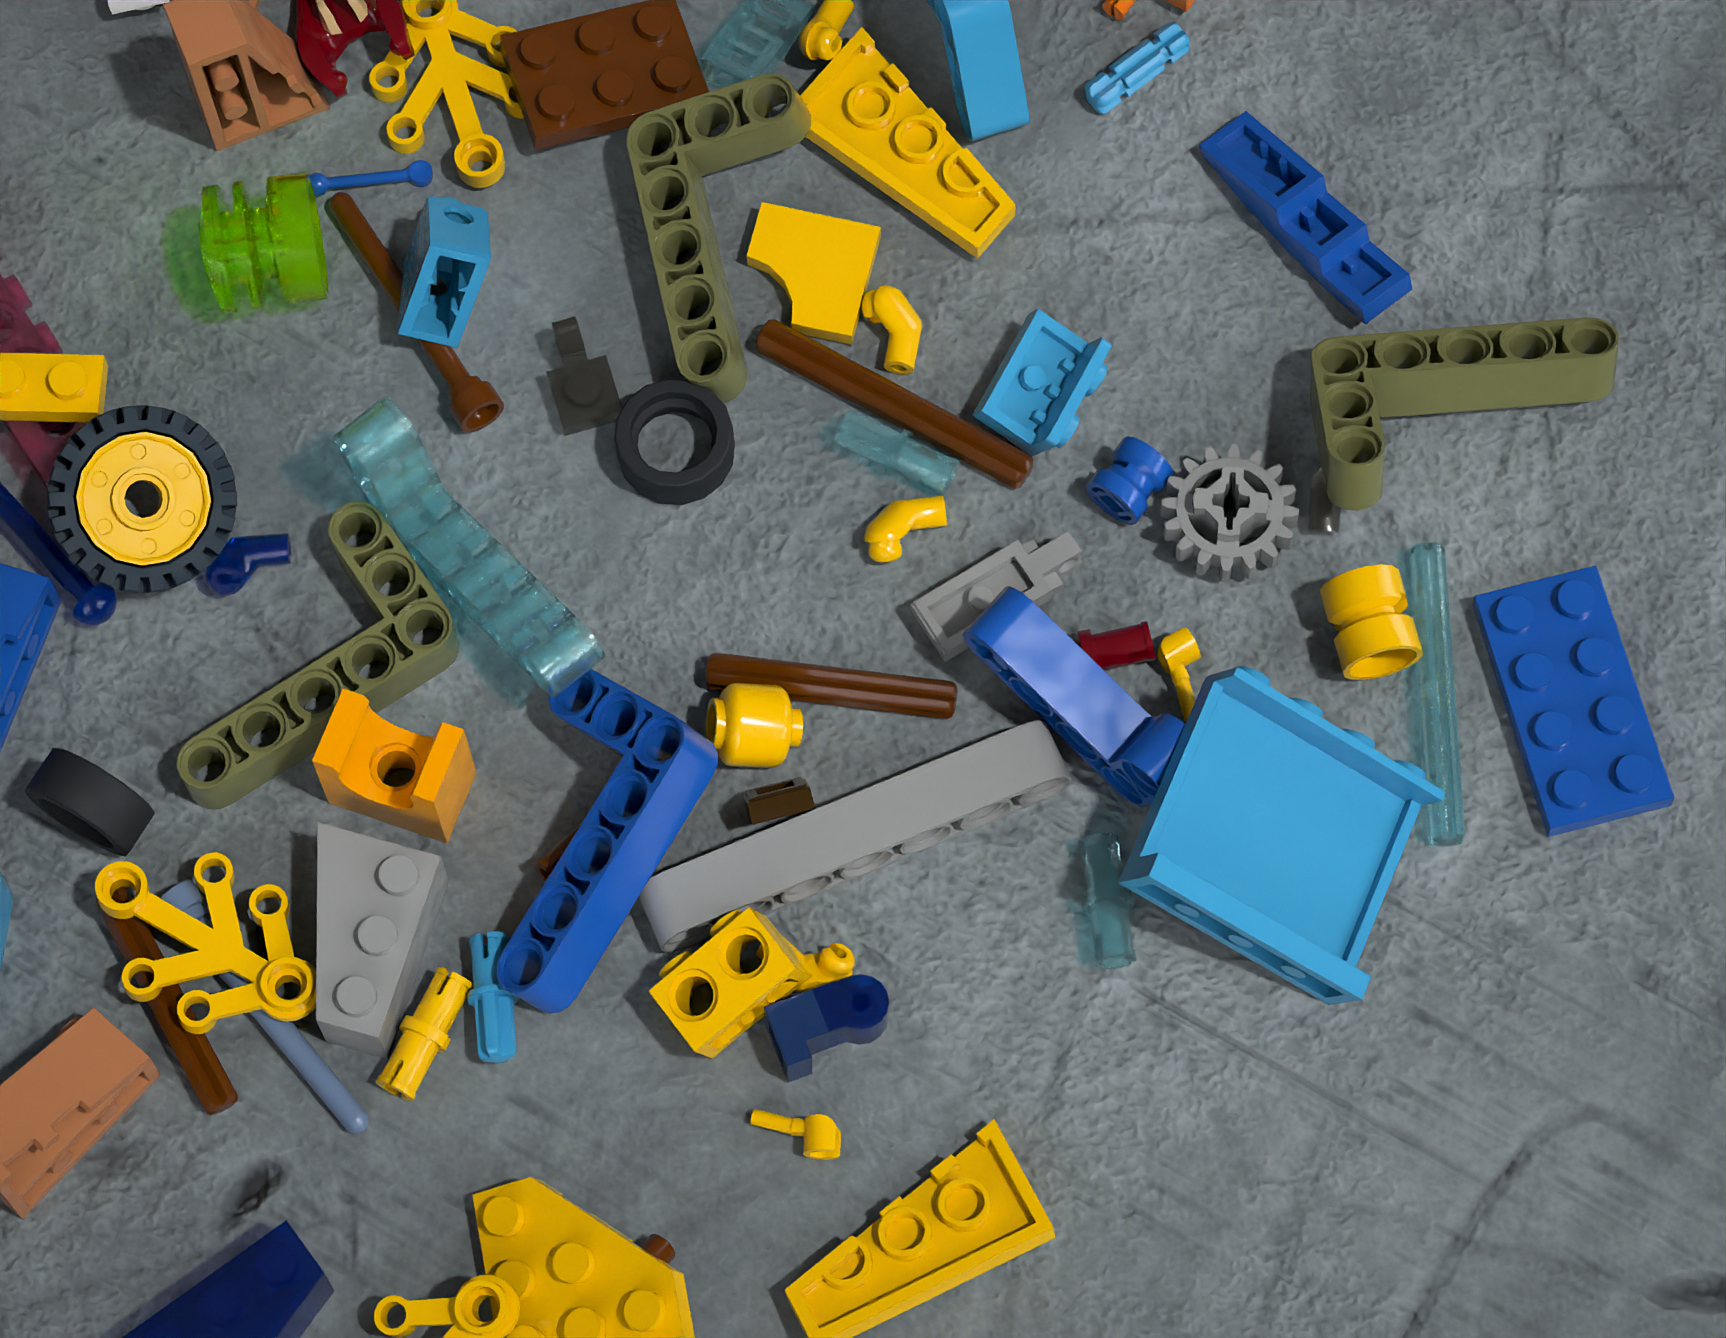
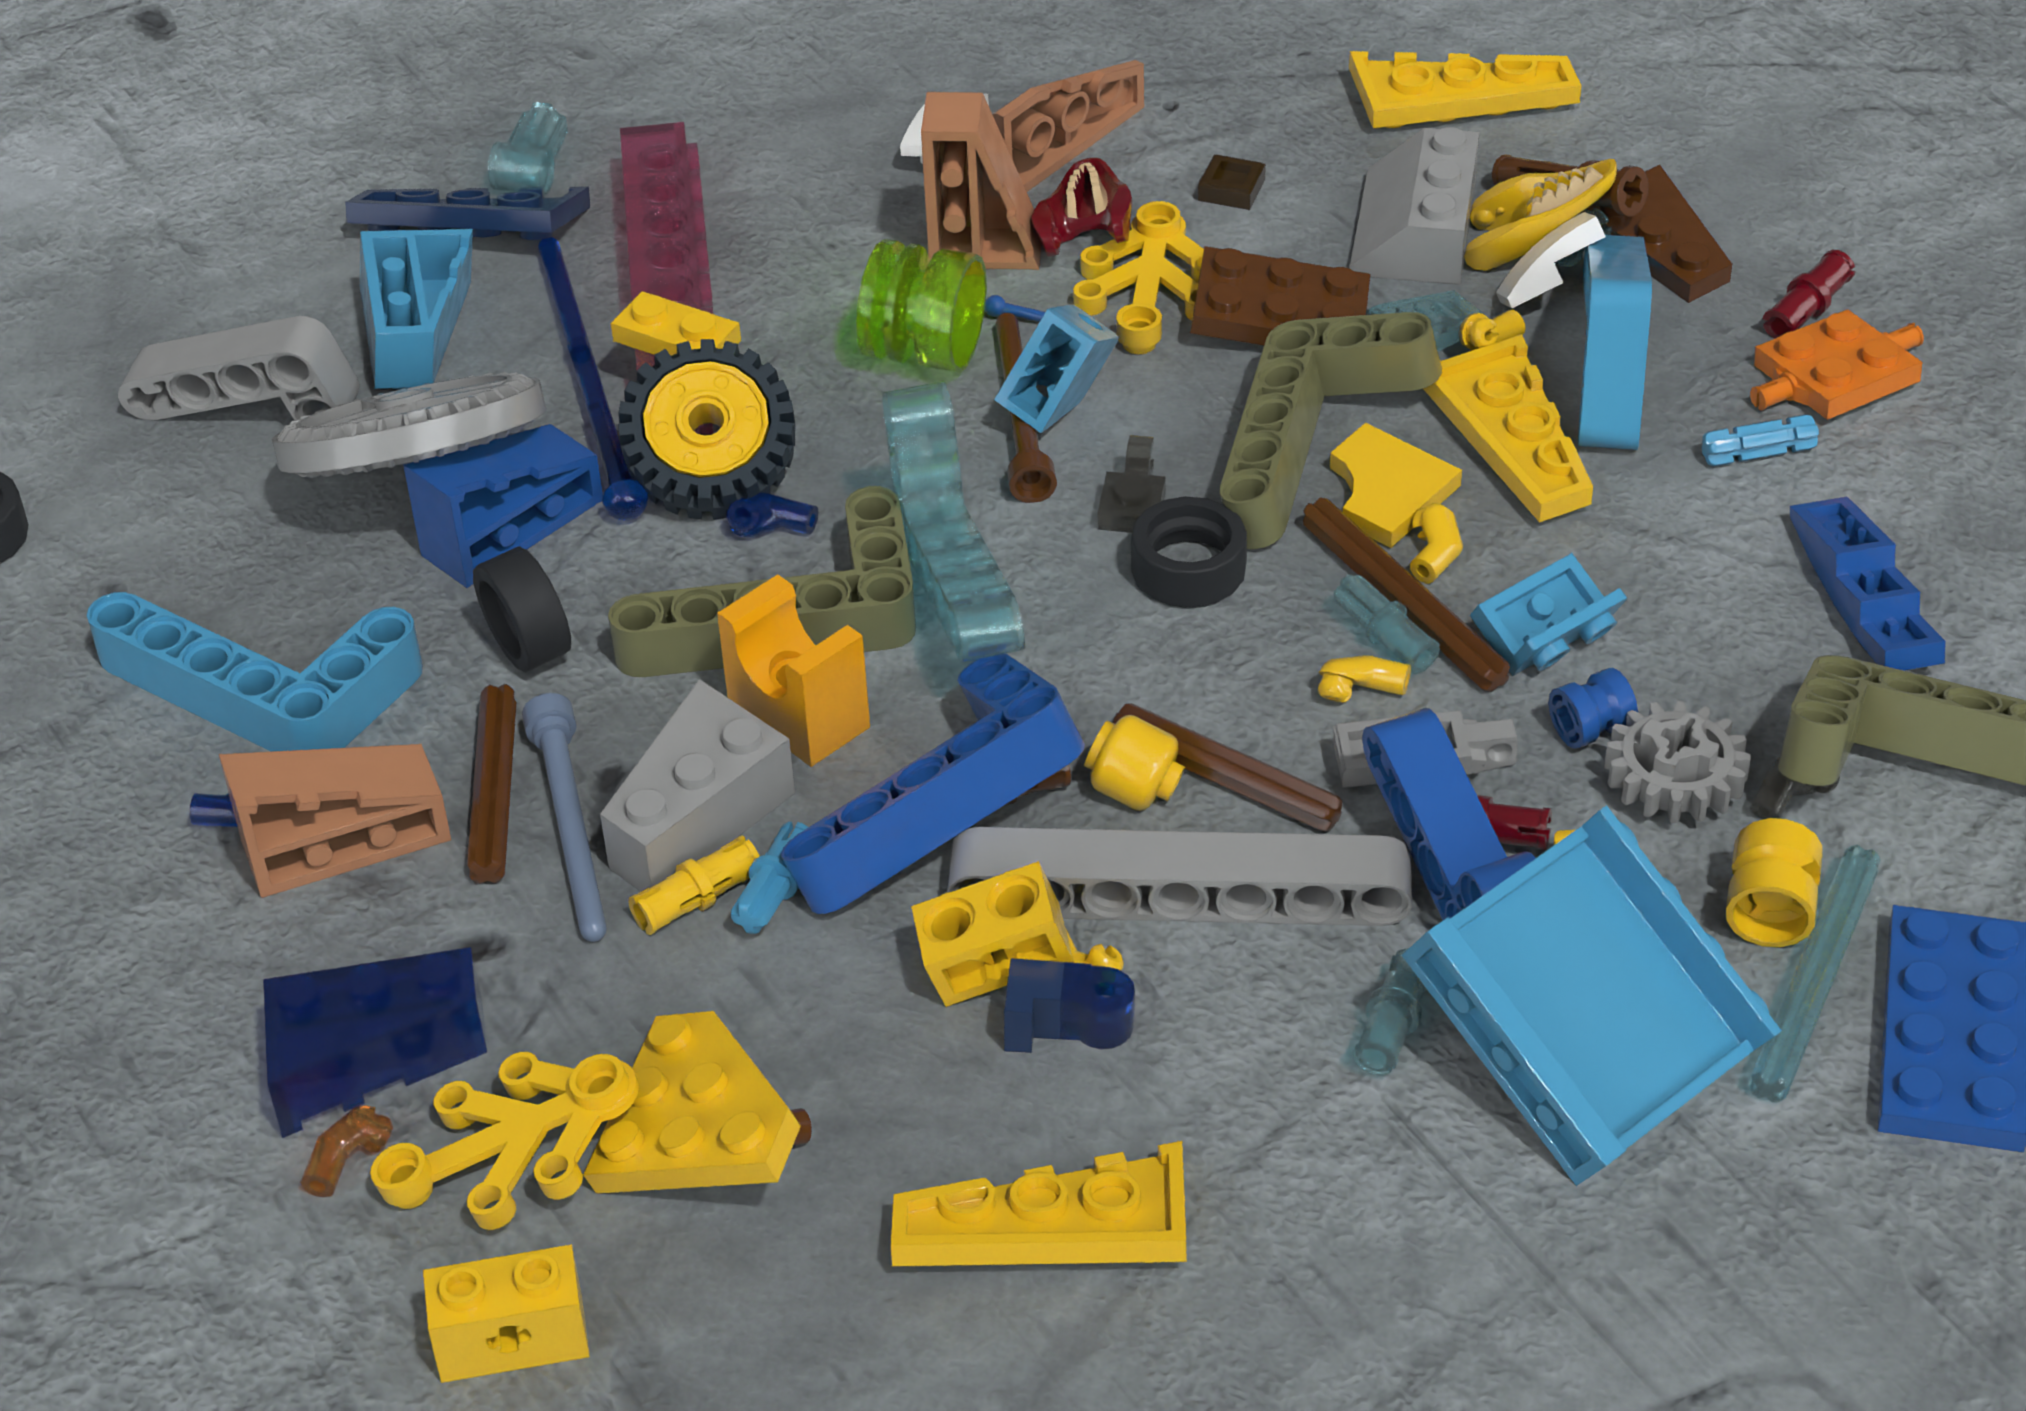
camera: 25 degrees right, 25 degrees down
(215, 949) = (585, 789): yellow plant -> none
(778, 800) = (1121, 816): dark brown tile -> none
(820, 1132) = (1003, 1091): yellow hand -> none

